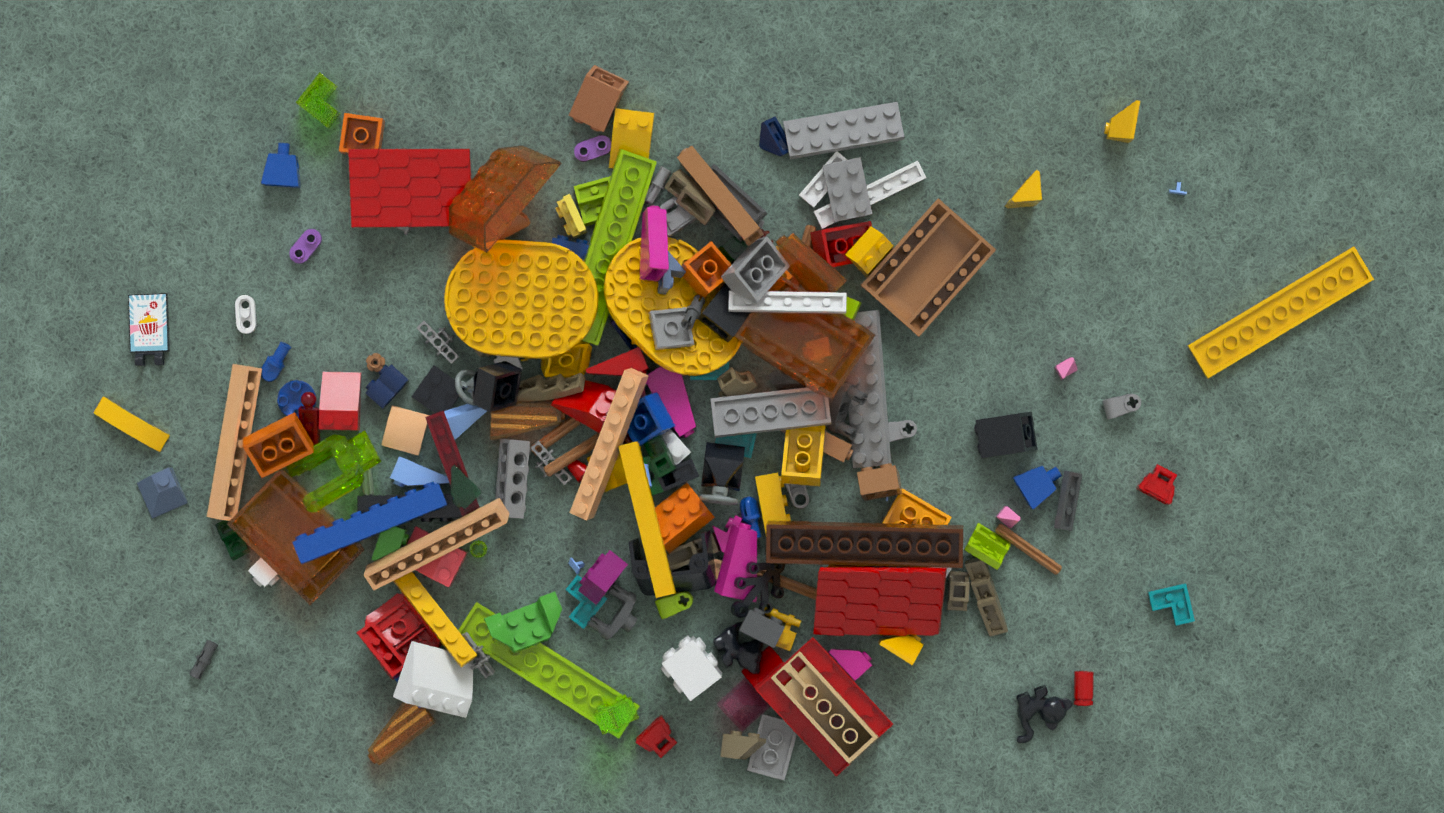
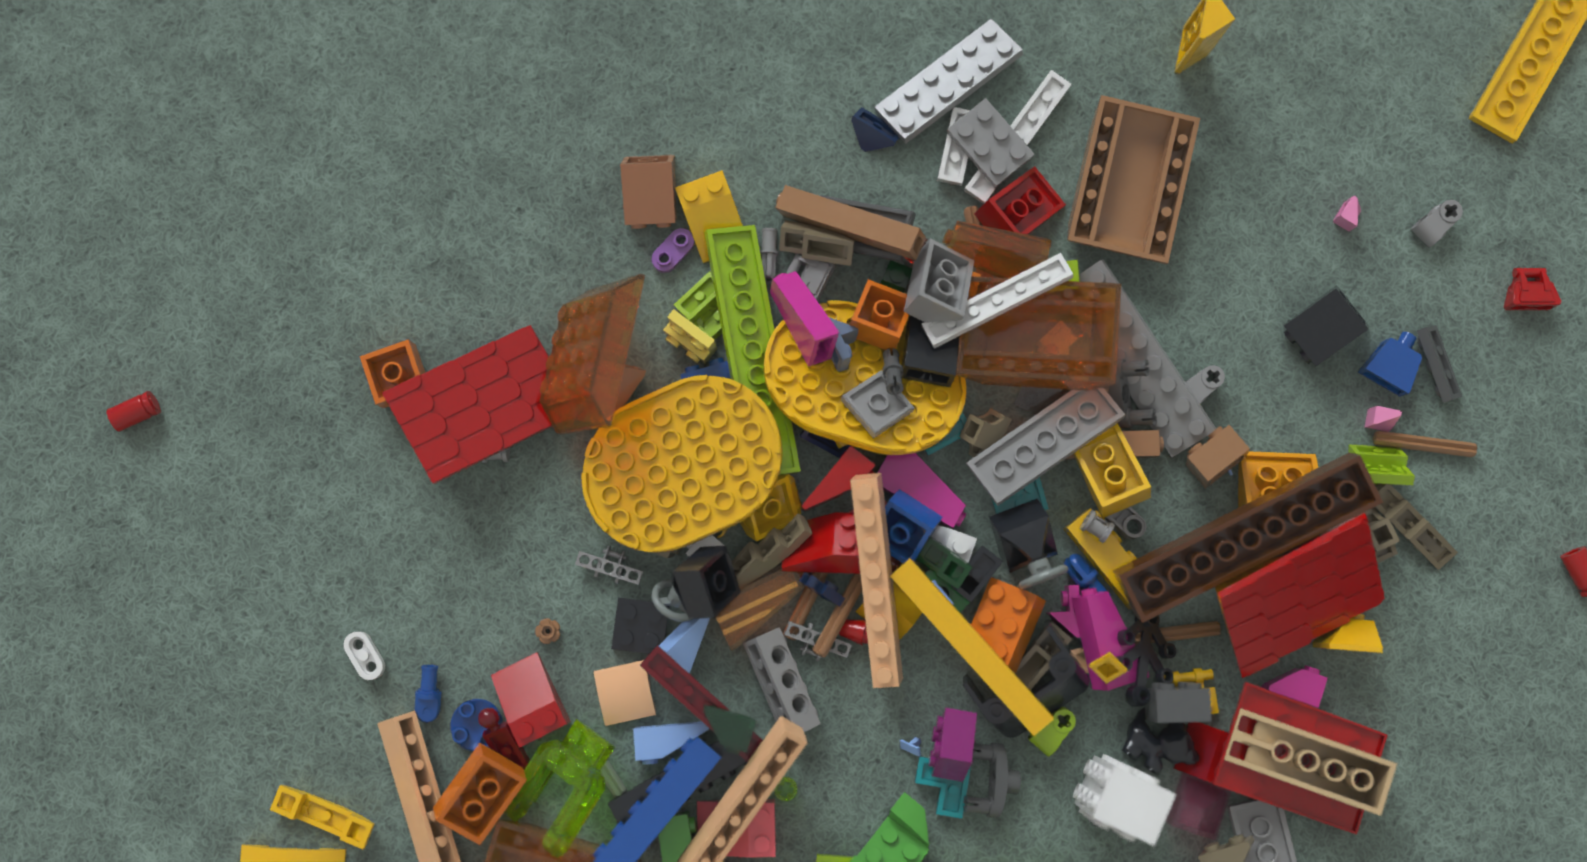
camera: 30 degrees left, 5 degrees down
(149, 327) = (256, 732): tile -> none
(166, 405) = (323, 814): none -> yellow slope
(173, 67) = (133, 411): none -> red piece
(281, 168) = (321, 462): blue torso -> none
(305, 246) = (397, 538): medium lavender plate -> none
(314, 100) = (319, 358): clear neon green brick -> none
(386, 386) = (575, 652): dark blue brick -> none
(573, 433) = (827, 590): none -> dark blue plate
(727, 579) = (1108, 667): none -> yellow slope
(773, 486) = (1097, 526): none -> light grey bush
(869, 251) = (1056, 196): yellow slope -> none
(1051, 710) = (1561, 617): black animal -> none

